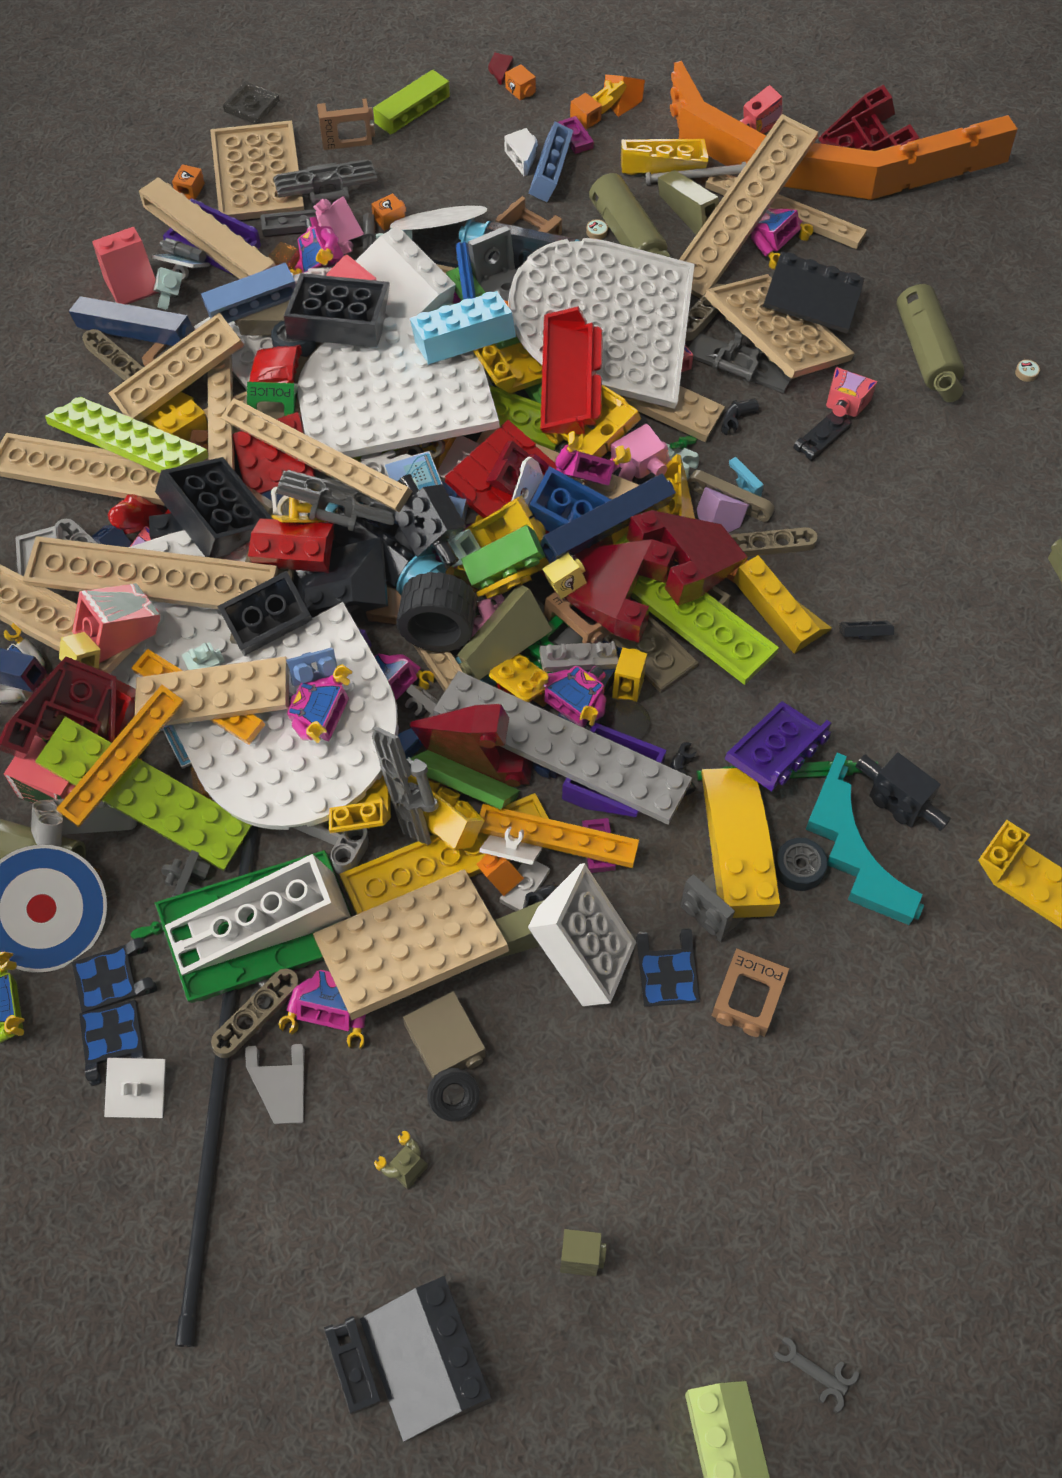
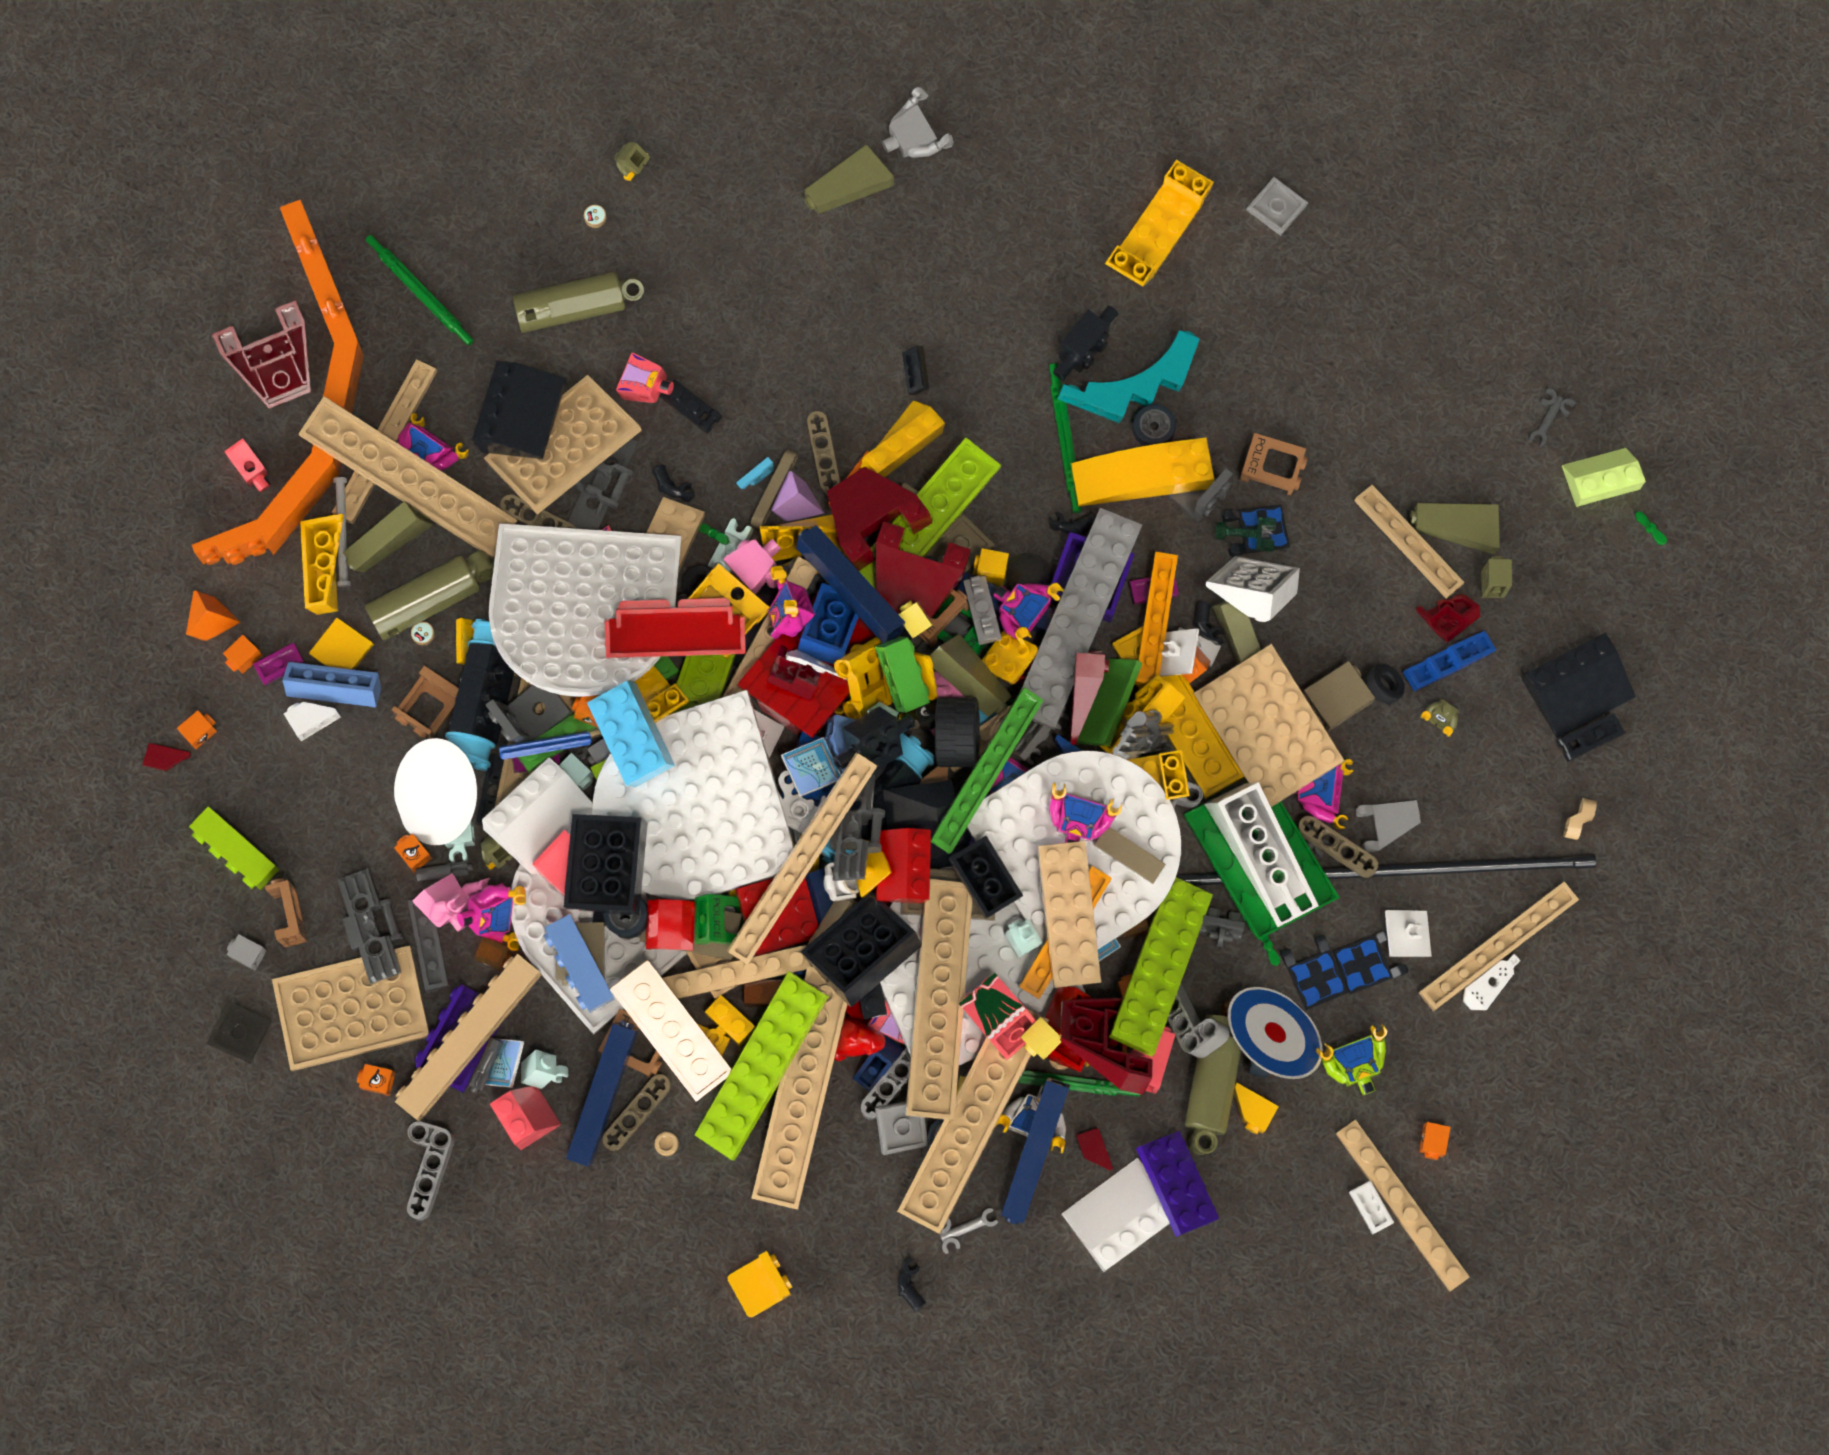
camera: 95 degrees left, 15 degrees up
(45, 1178) = (1483, 987): none -> white piece
(79, 378) = (666, 1143): none -> tan tile
(98, 1203) = (1498, 946): none -> tan plate
(101, 213) = (425, 1172): none -> light grey beam
(120, 756) = (1142, 979): light orange plate -> none
(246, 1340) = (1585, 814): none -> tan piece
(271, 764) = (1130, 855): none -> dark tan tile
(302, 670) = (1040, 826): medium blue hips -> none
(310, 105) = (246, 952): none -> light grey brick
(386, 626) = (986, 770): none -> bright green plate
(478, 1186) = (1449, 661): none -> blue slope
(544, 1203) = (1456, 613): none -> dark red slope
(583, 174) = (341, 647): none -> yellow tile
(609, 94) = (220, 631): yellow slope -> none
(641, 1151) = (1409, 541): none -> tan plate
(662, 1226) = (1462, 524): none -> olive slope
(665, 925) = (1266, 545): none -> clear green bar
(778, 746) = (1050, 441): dark purple bracket -> none
(937, 239) = (419, 290): none -> green axle

